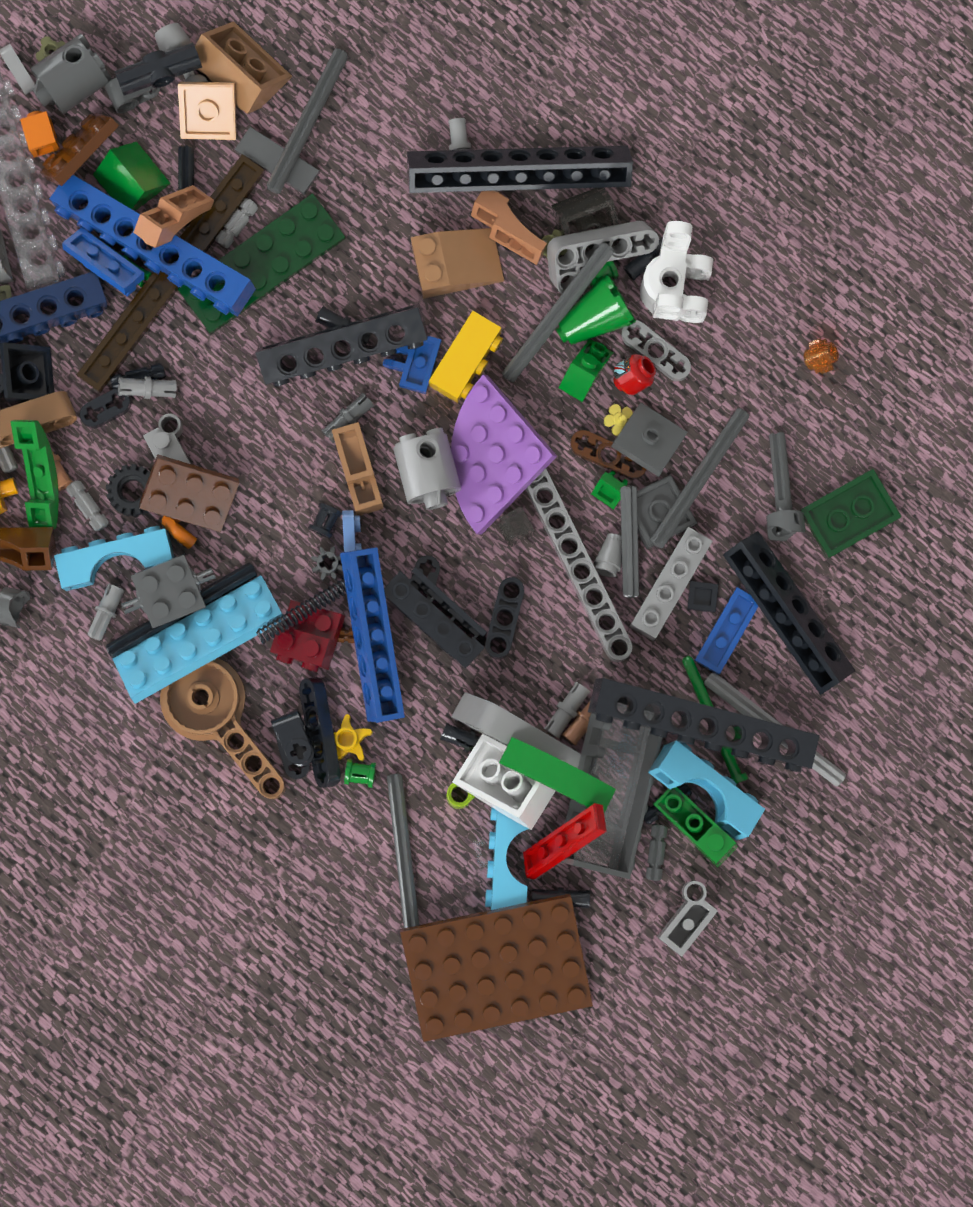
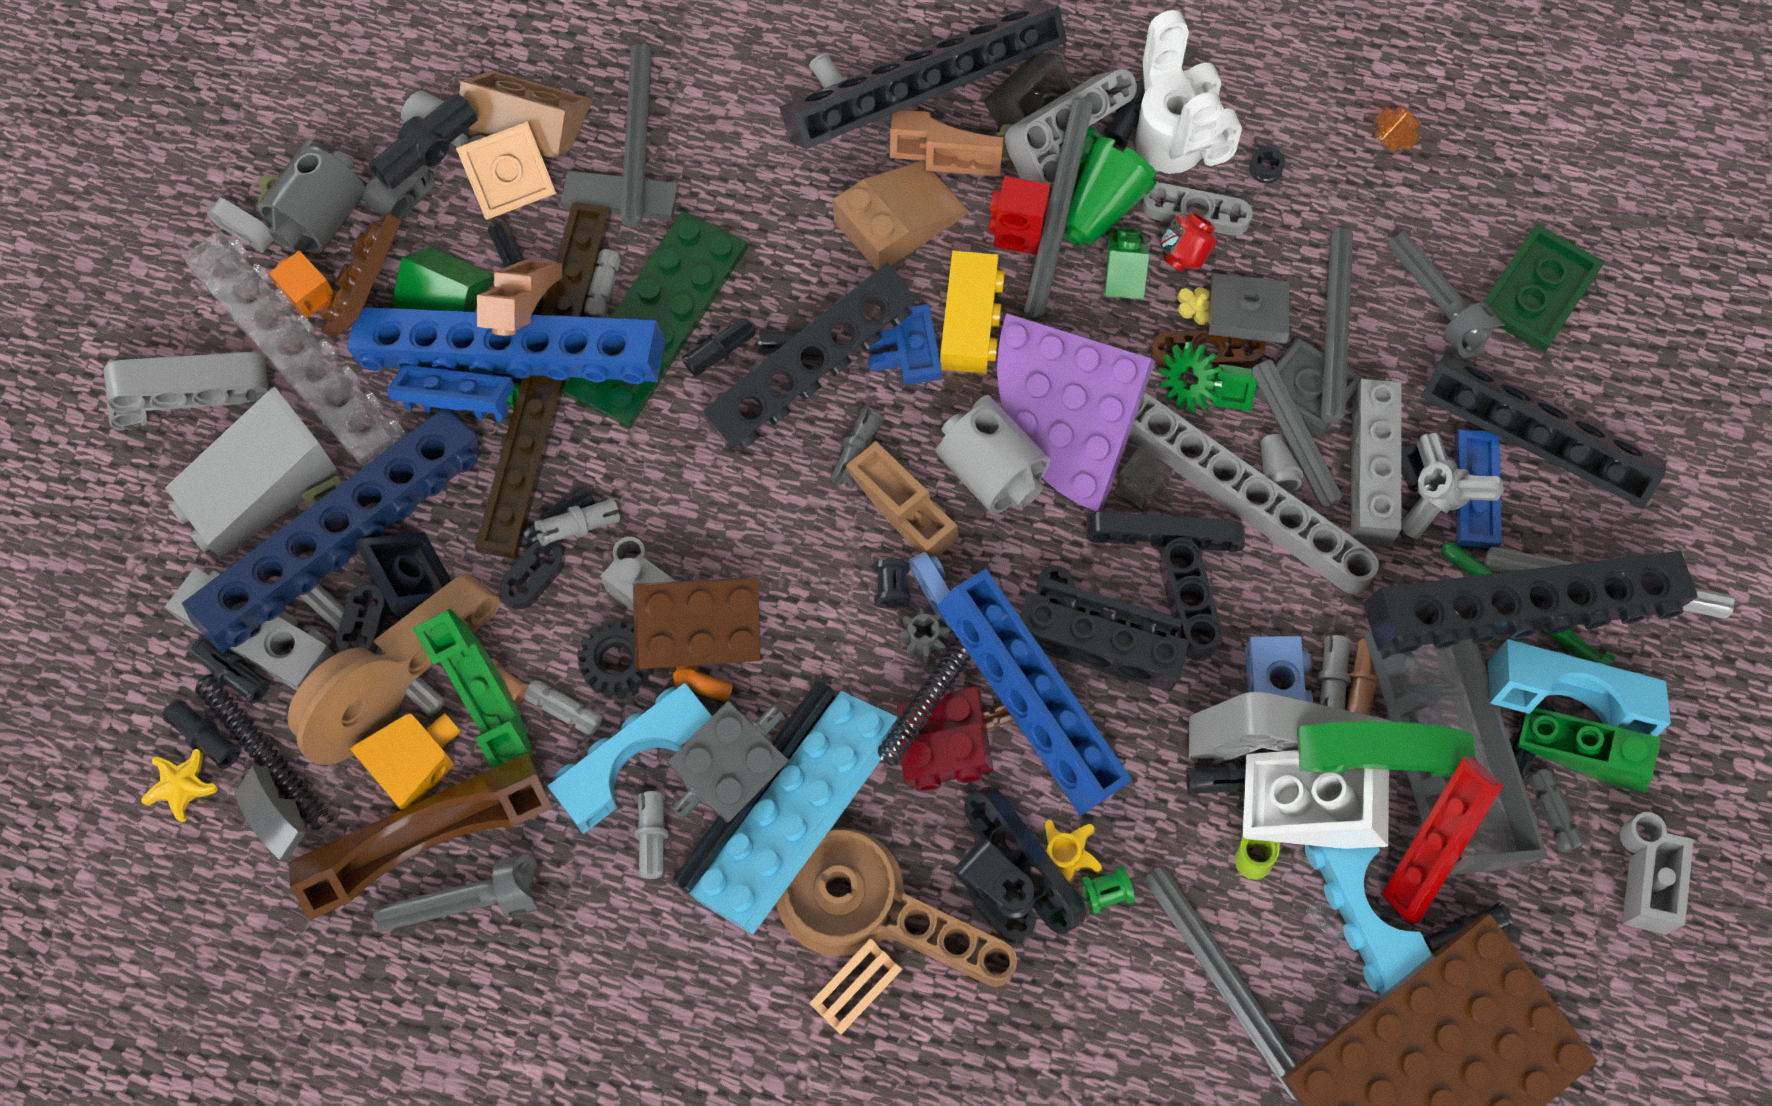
camera: 20 degrees left, 15 degrees down
(162, 768) = (881, 959): none -> light nougat tile
(292, 304) = (718, 347): none -> black axle
(513, 566) = (1161, 530): none -> black beam
(528, 304) = (1019, 214): none -> red brick
(535, 679) = (1277, 657): none -> medium blue brick
(592, 471) = (1201, 367): none -> green gear
(702, 621) = (1444, 487): none -> light grey bush
(712, 341) = (1258, 170): none -> black bush

